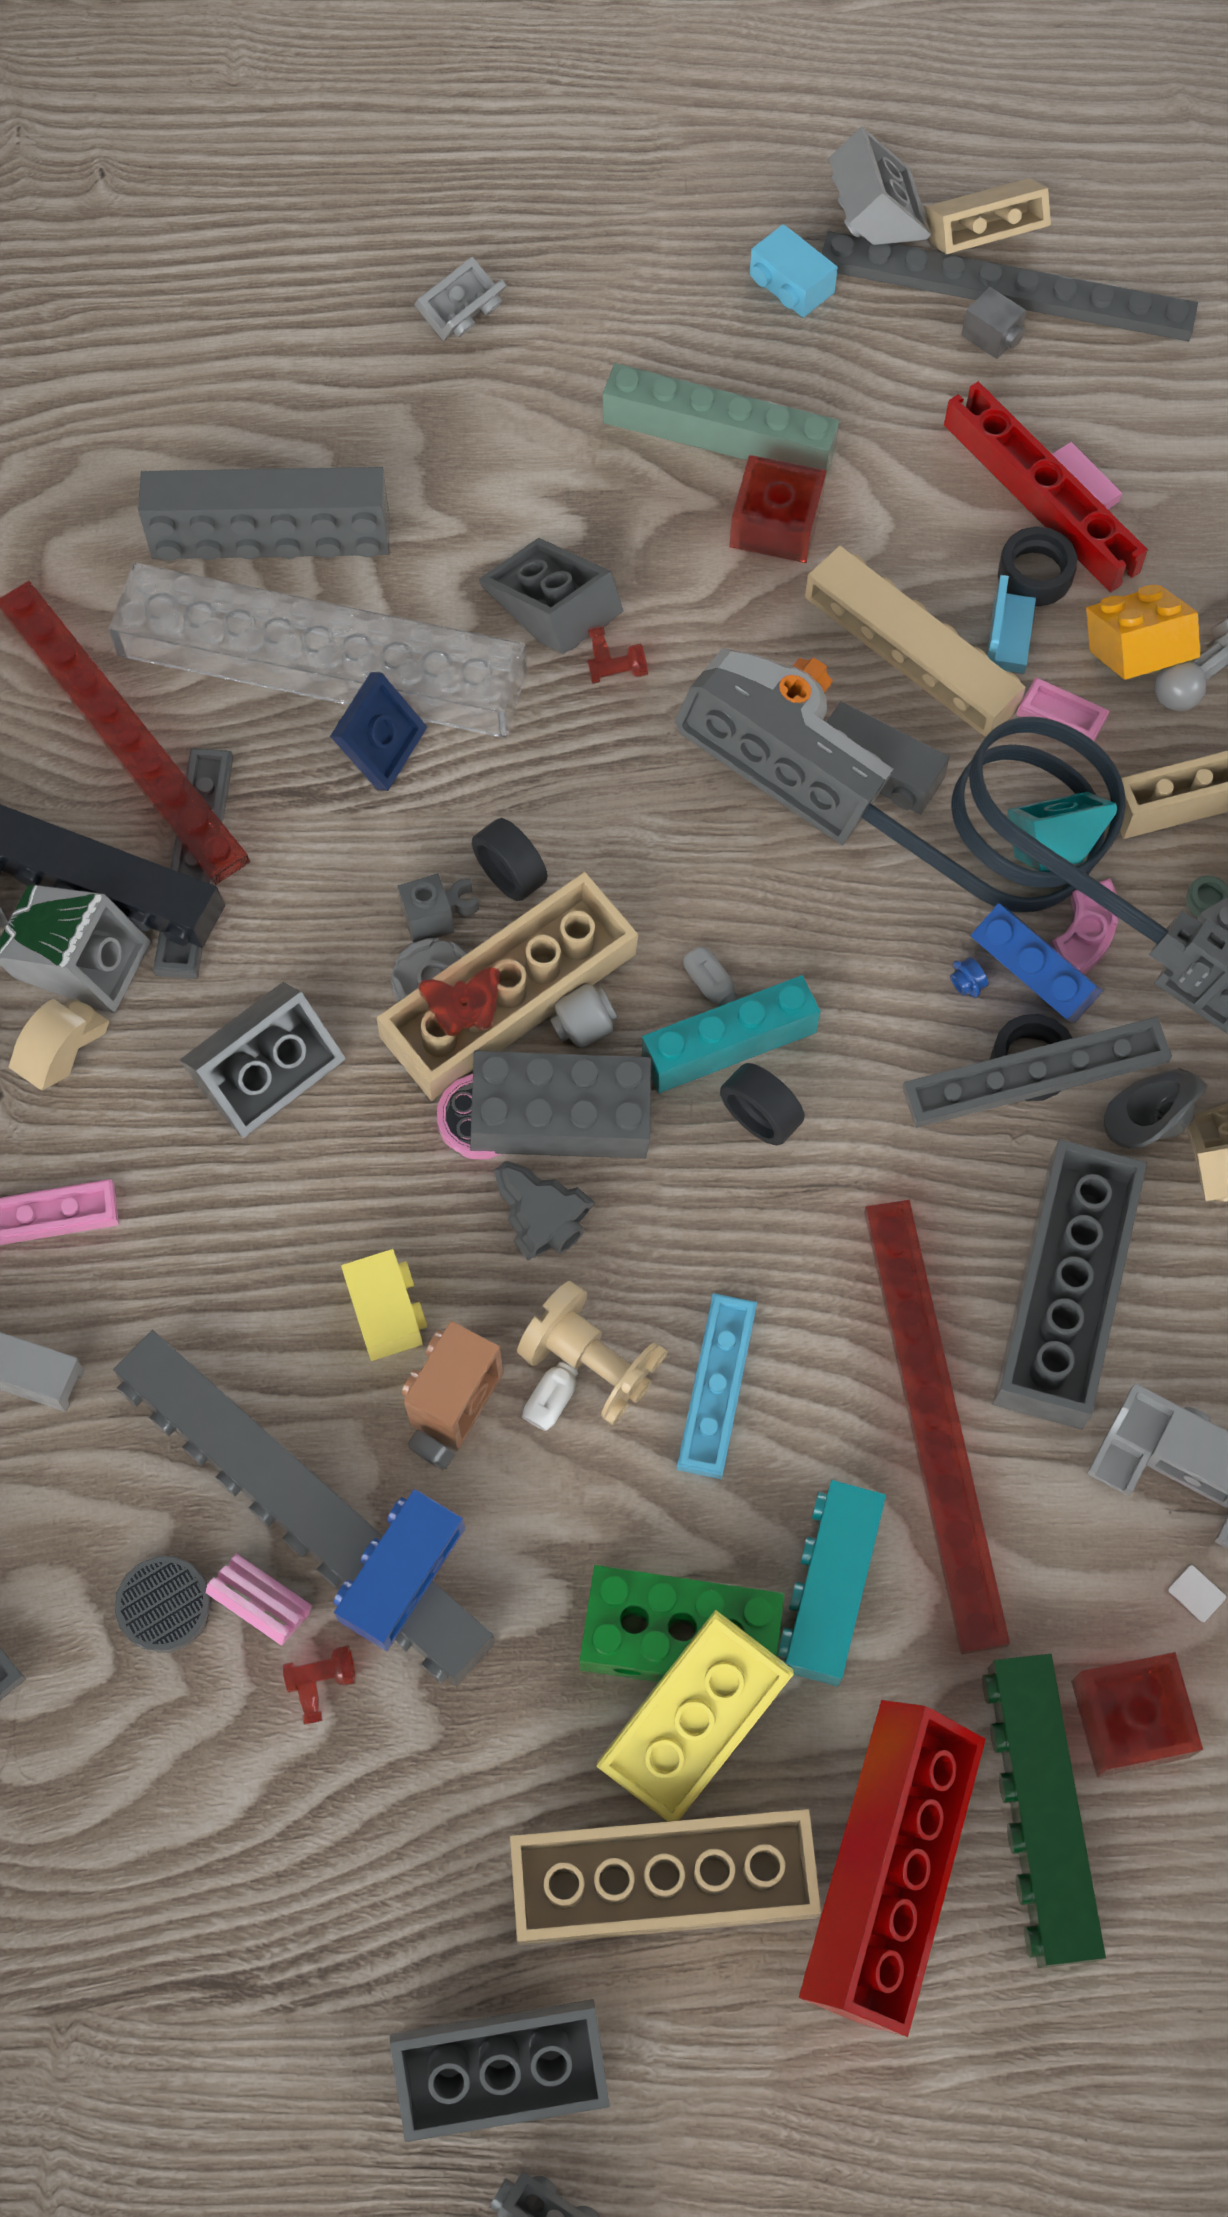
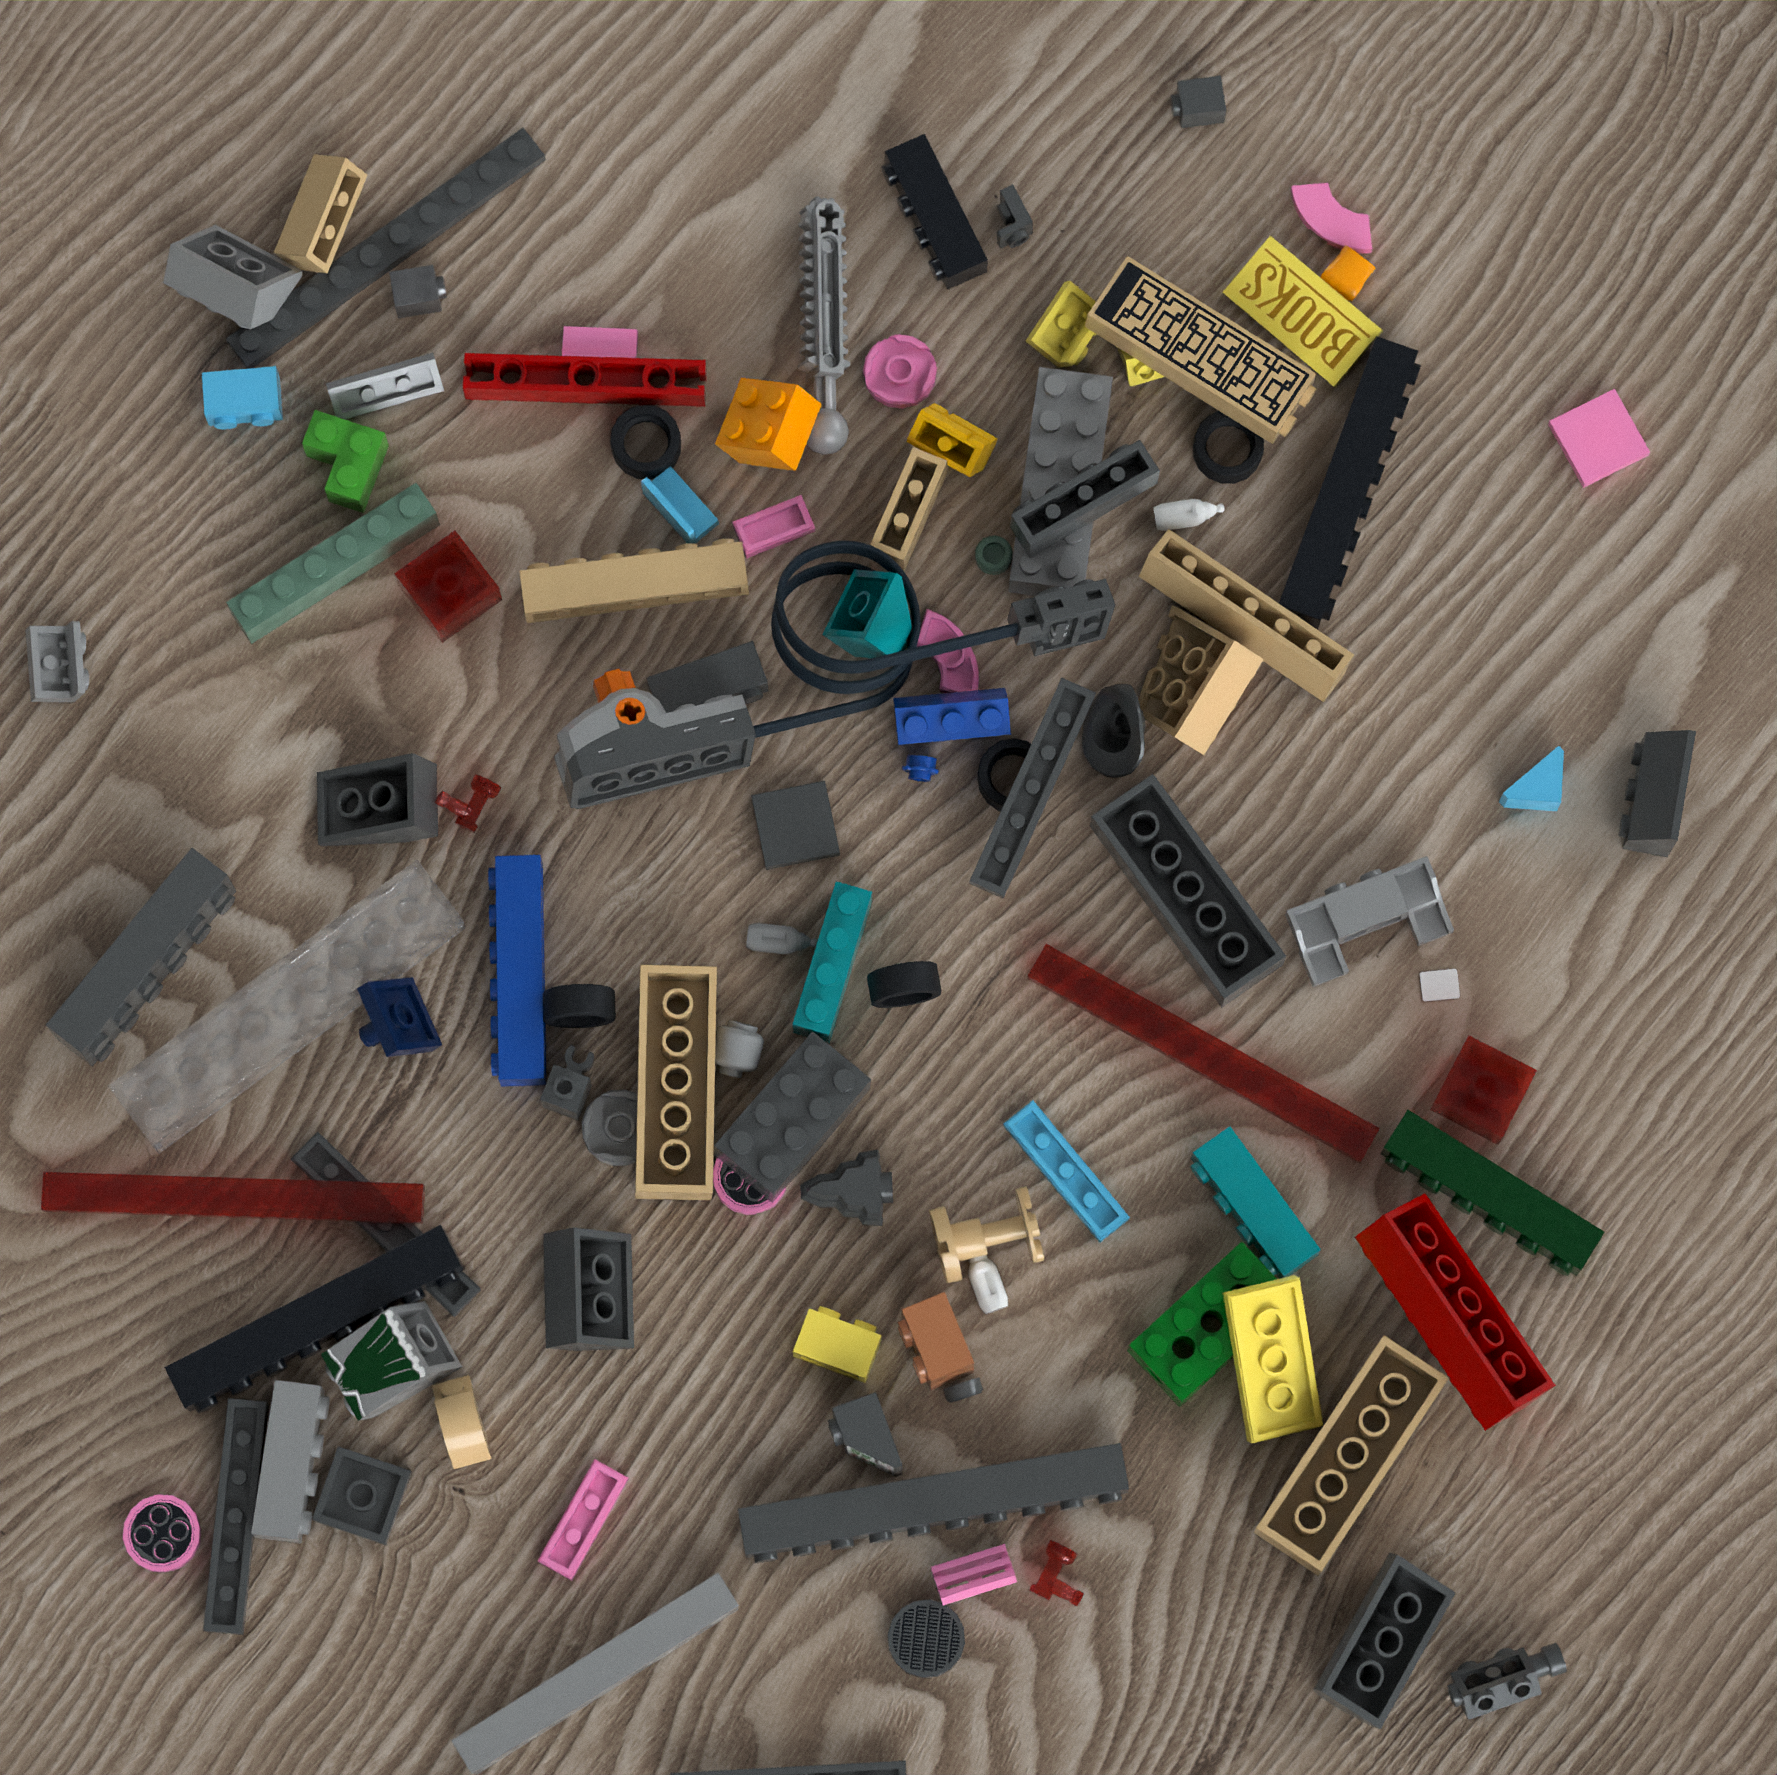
camera: 50 degrees left, 10 degrees up
(316, 1389) = (865, 1433): none -> dark grey slope
(398, 1569) = (1035, 1468): blue brick -> none
(479, 995) = (678, 1110): clear red animal -> none
(510, 789) = (520, 970): none -> blue brick
(818, 371) = (353, 452): none -> bright green brick
(825, 918) = (795, 825): none -> dark grey tile
(897, 357) = (385, 386): none -> light grey plate

